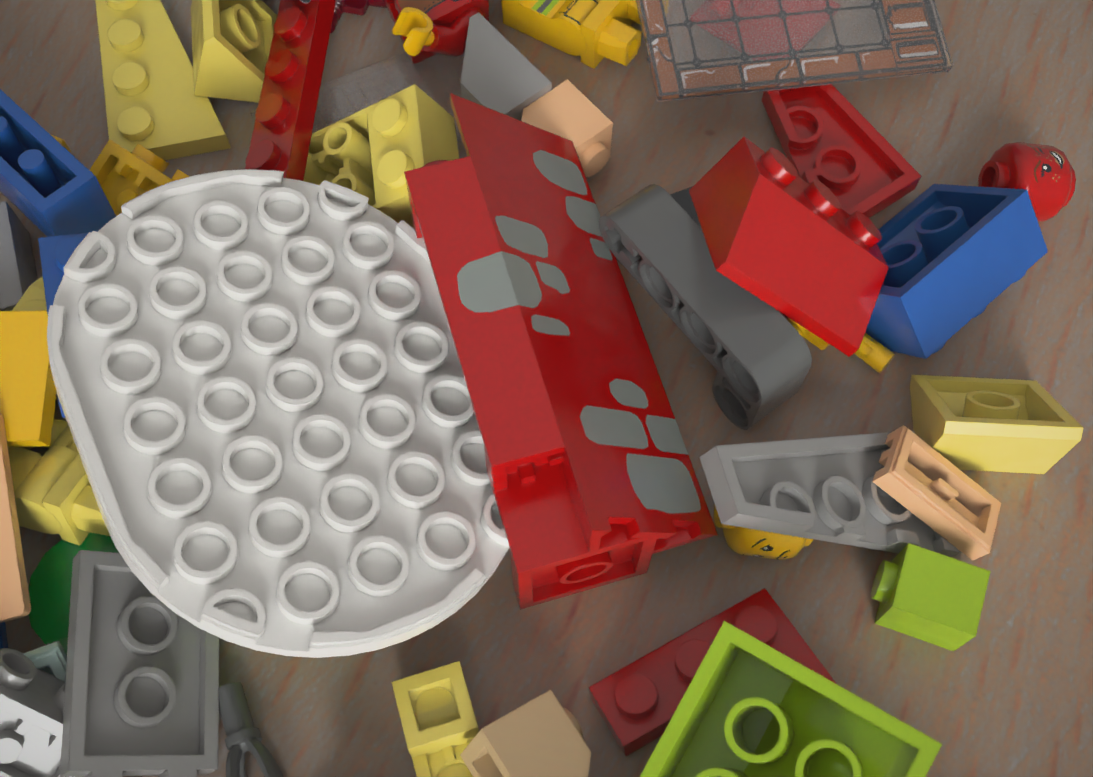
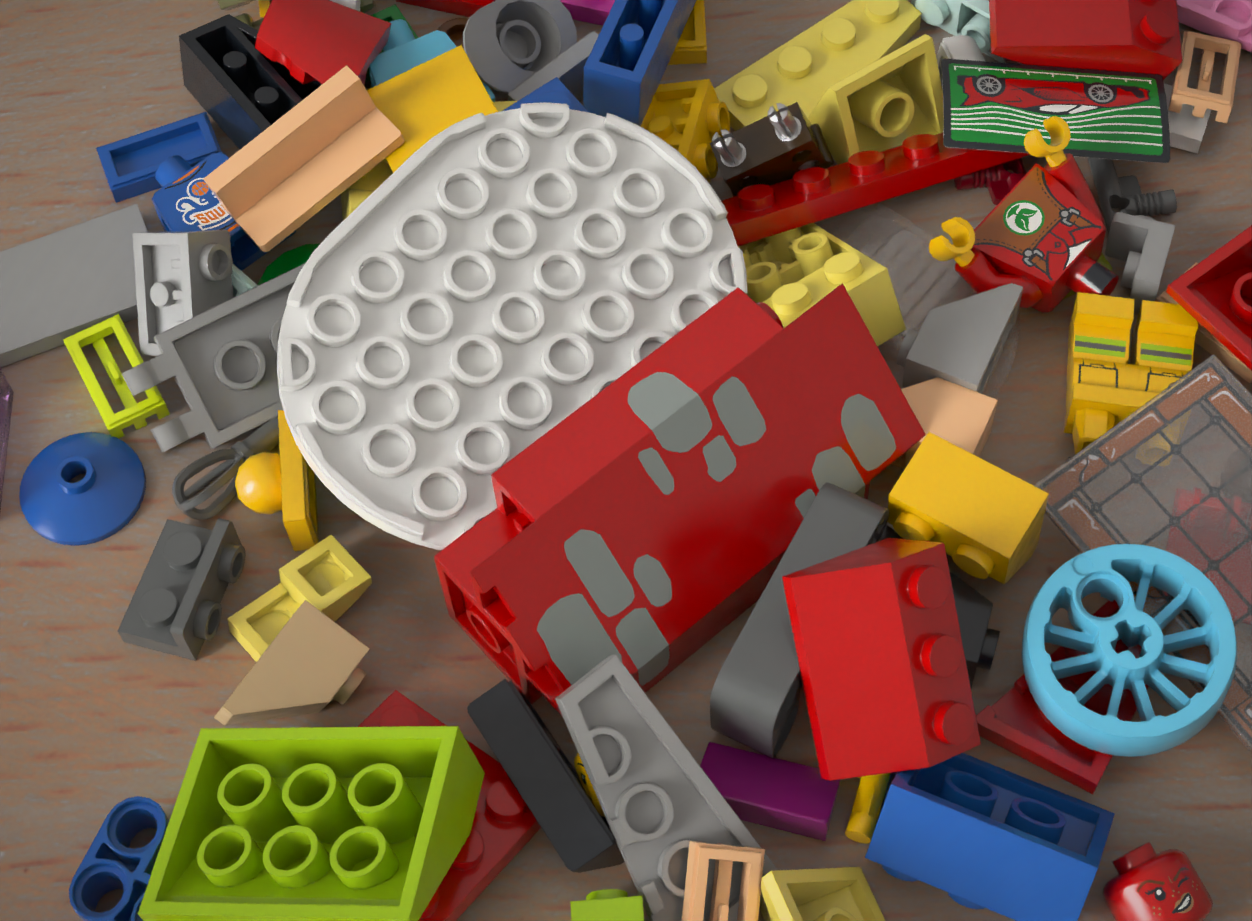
camera: 70 degrees right, 5 degrees down
(221, 124) = (770, 149): none -> dark brown piece
(302, 703) = (283, 484): none -> yellow tile
(666, 136) = (972, 506): none -> yellow slope
(749, 583) = (544, 778): none -> black slope
(826, 400) = (772, 790): none -> magenta slope
(841, 91) = (1108, 572): none -> medium azure piece

